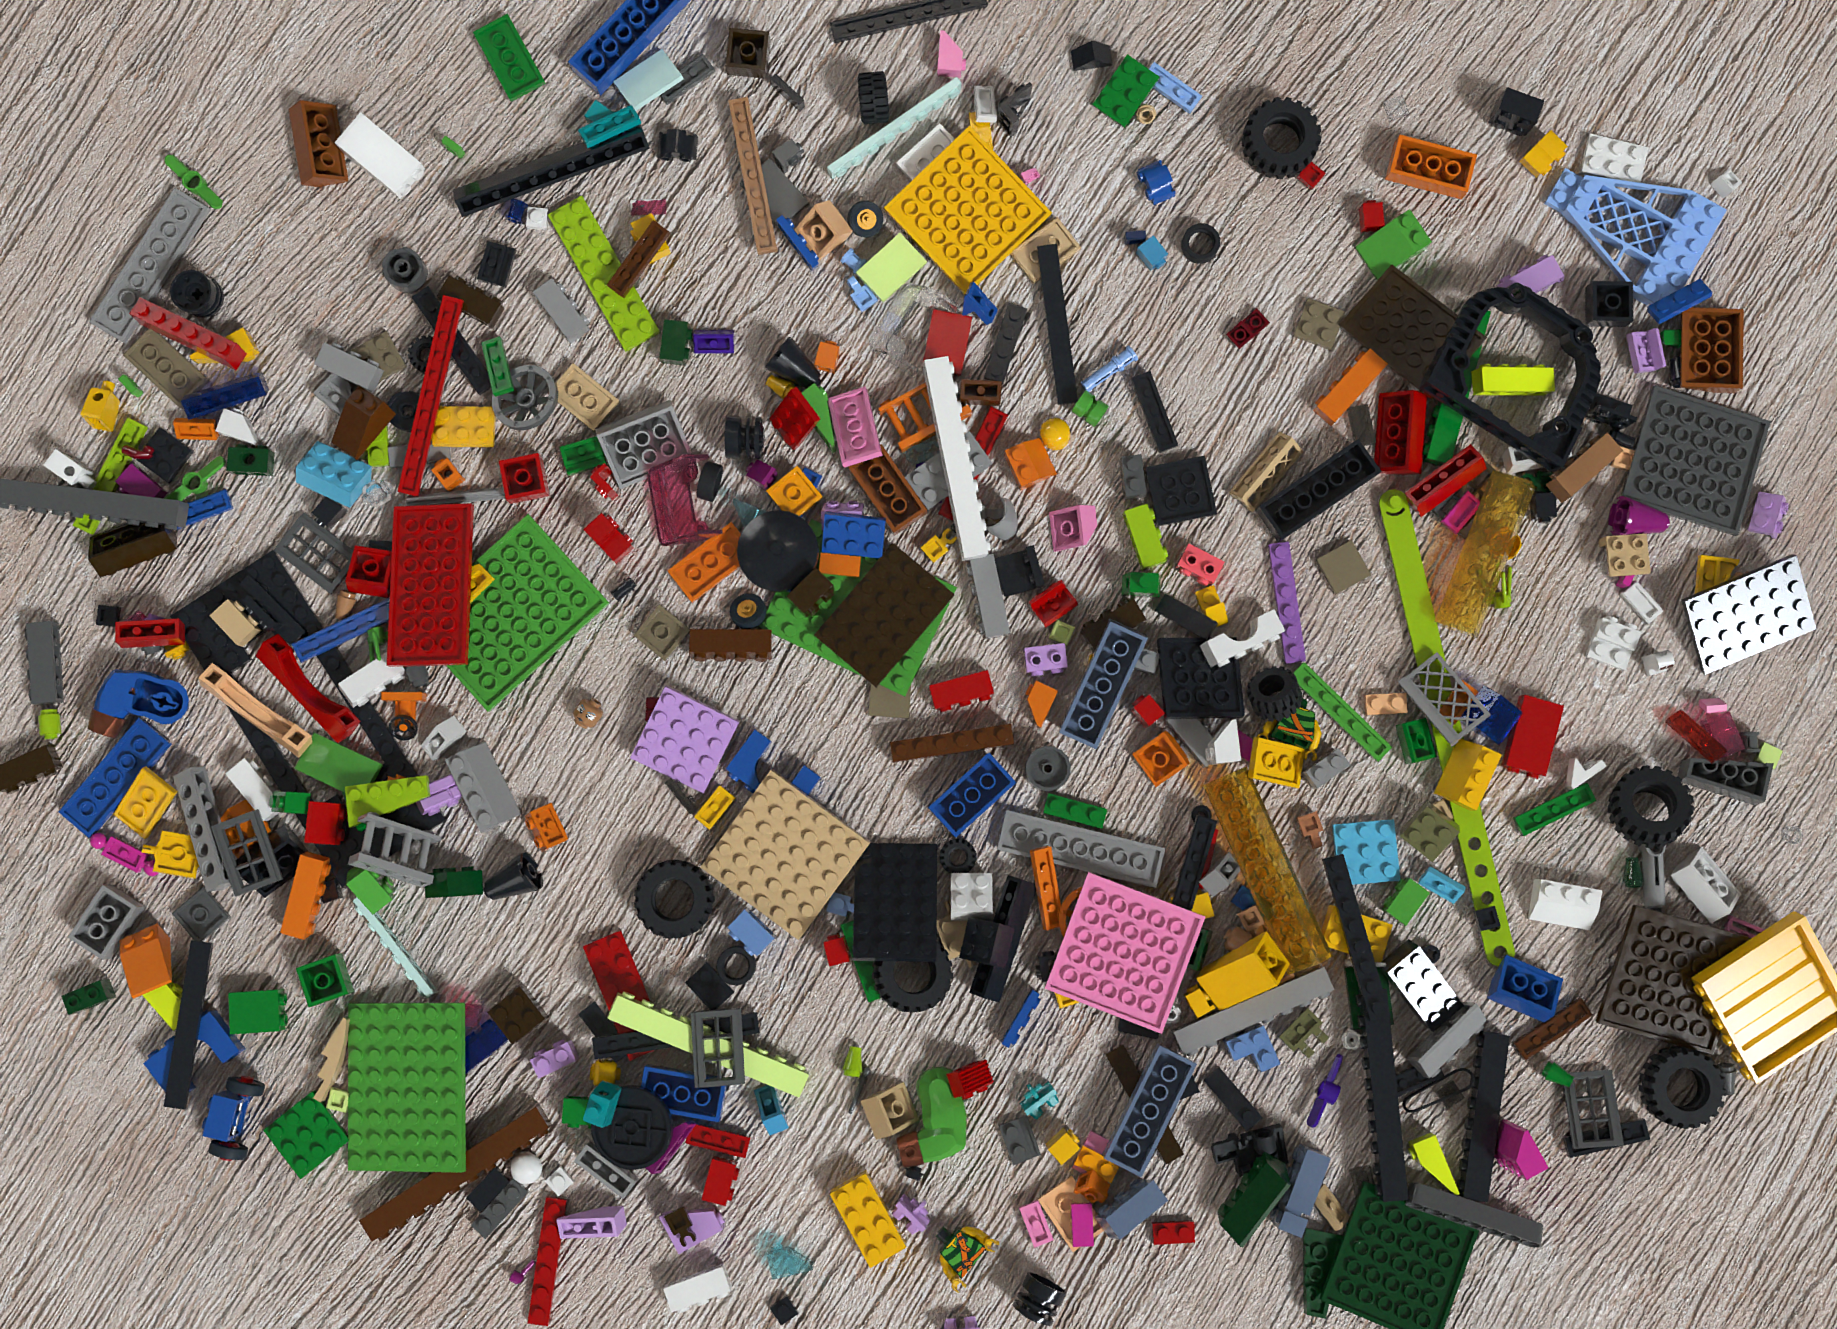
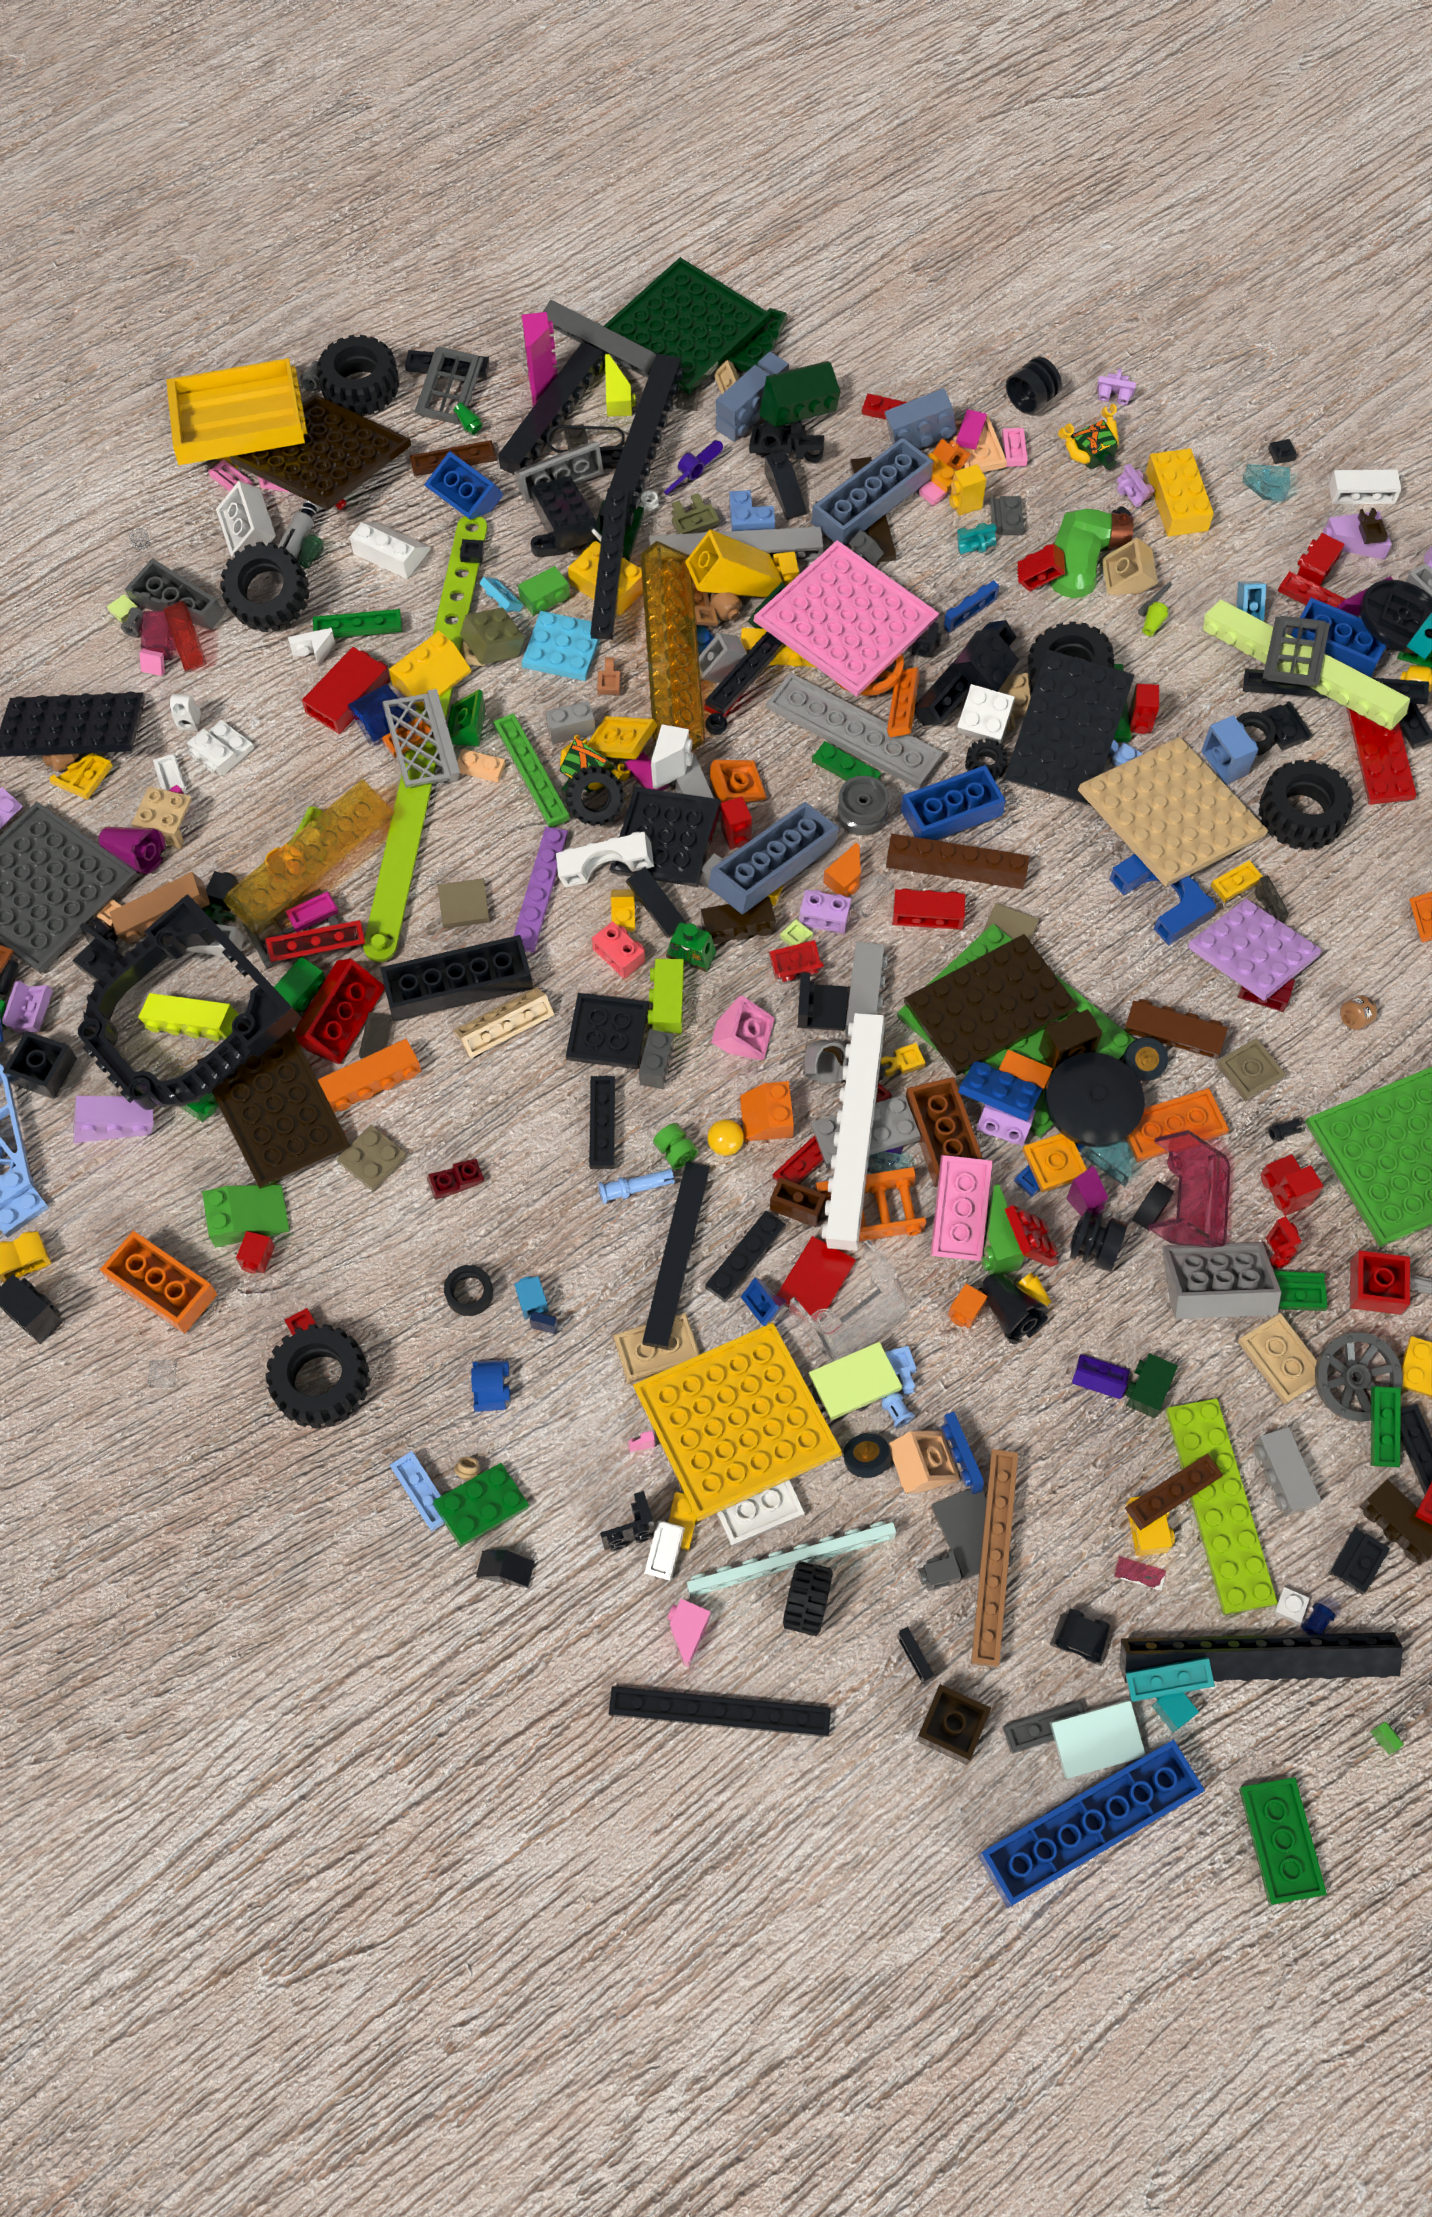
camera: 160 degrees left, 20 degrees down
(1136, 1042) = (866, 547): none -> dark grey brick

